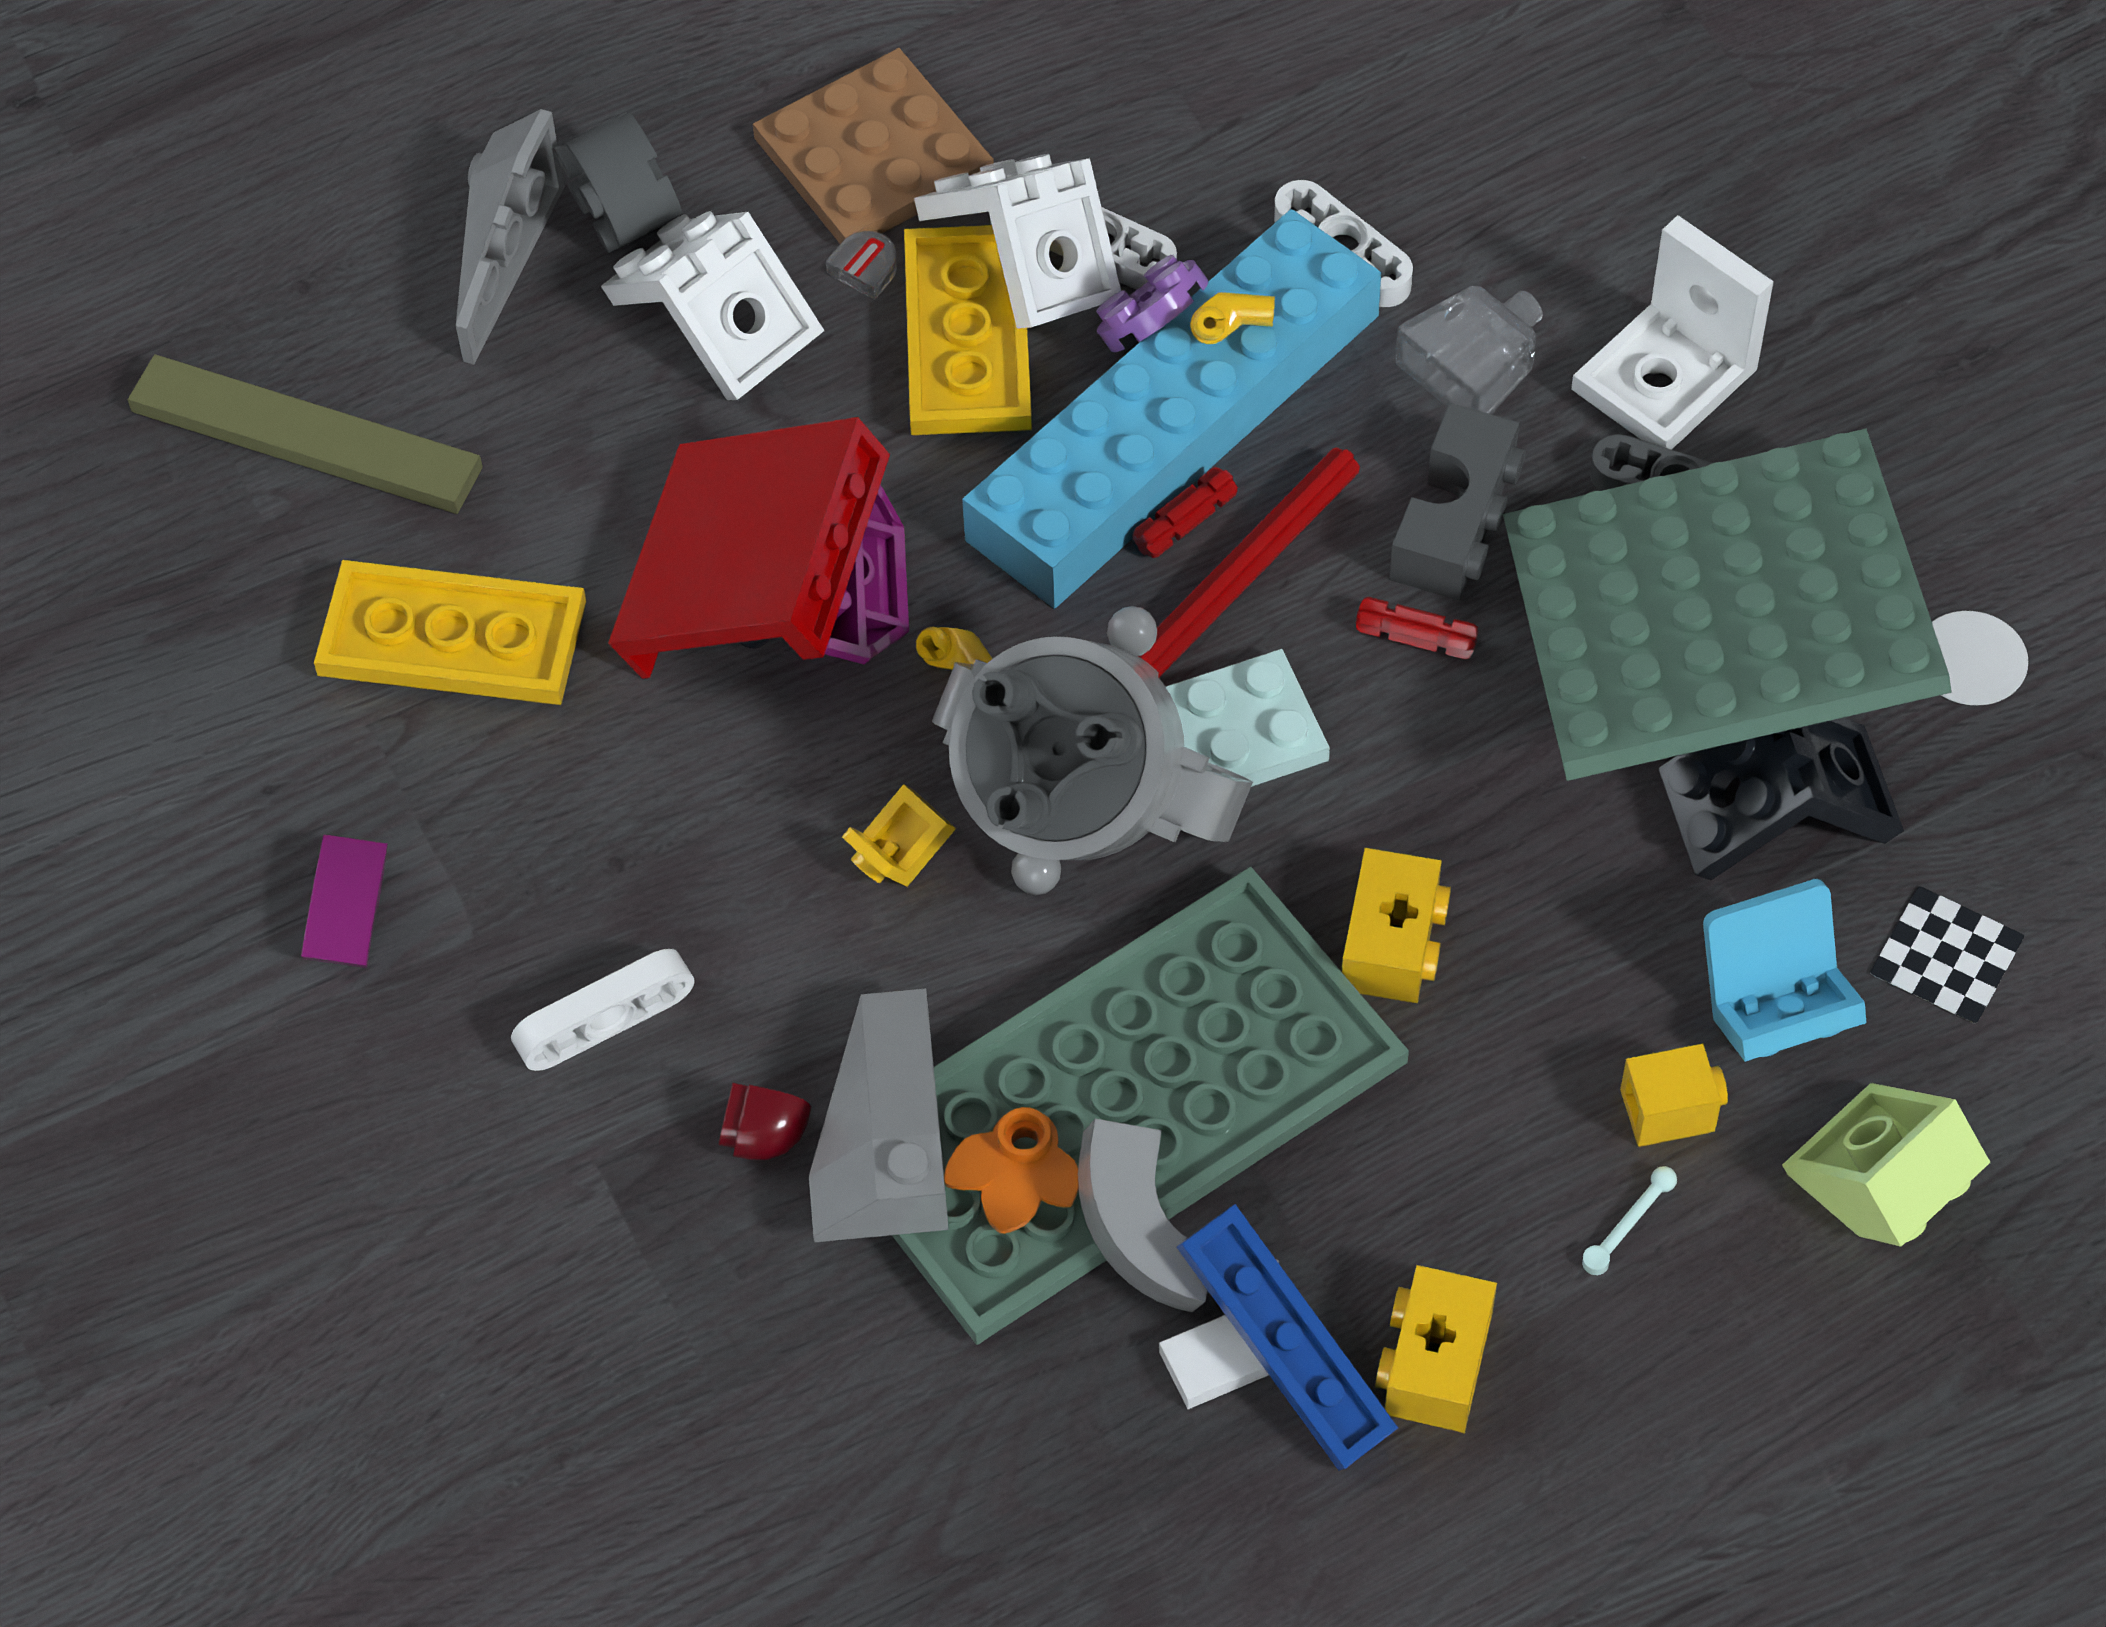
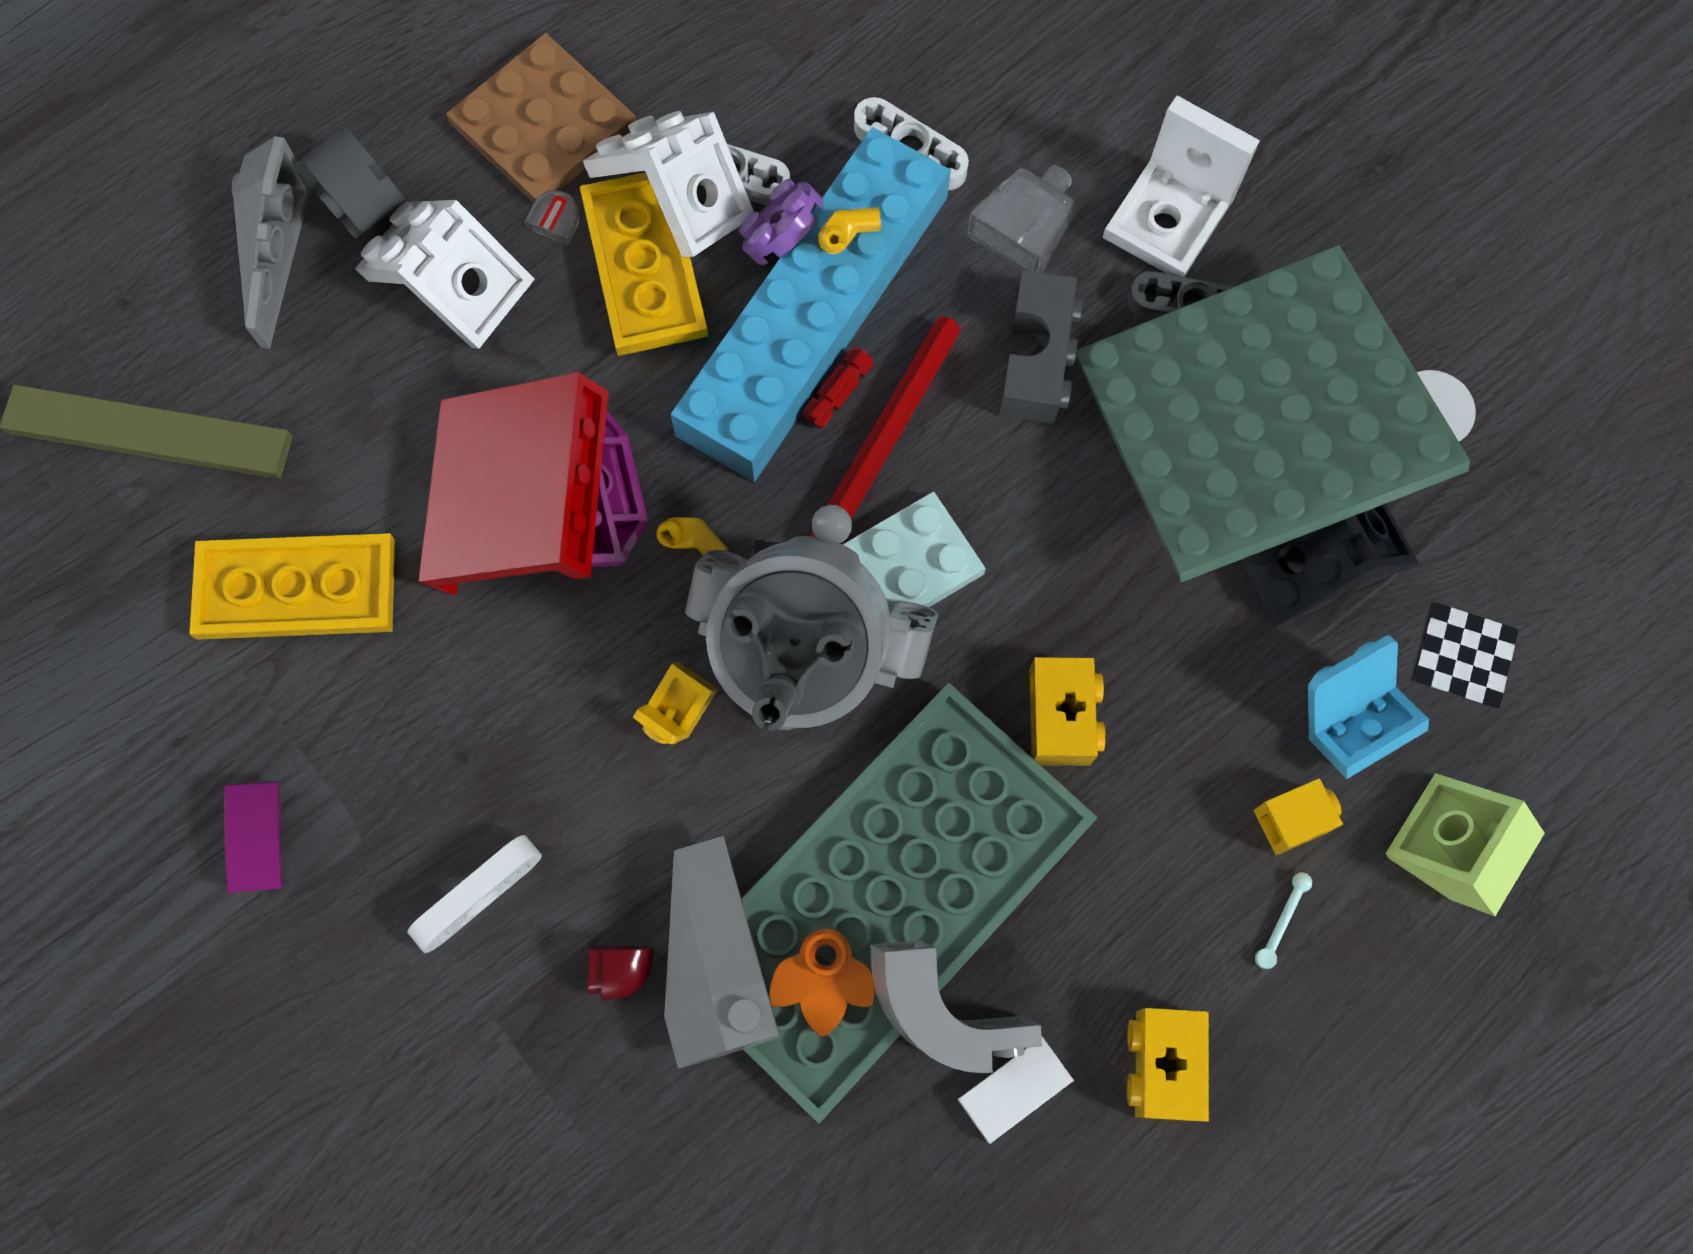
camera: 15 degrees left, 15 degrees up
(1287, 1337) = (1059, 1090): blue plate -> none
(1417, 628) = (1029, 455): red axle -> none

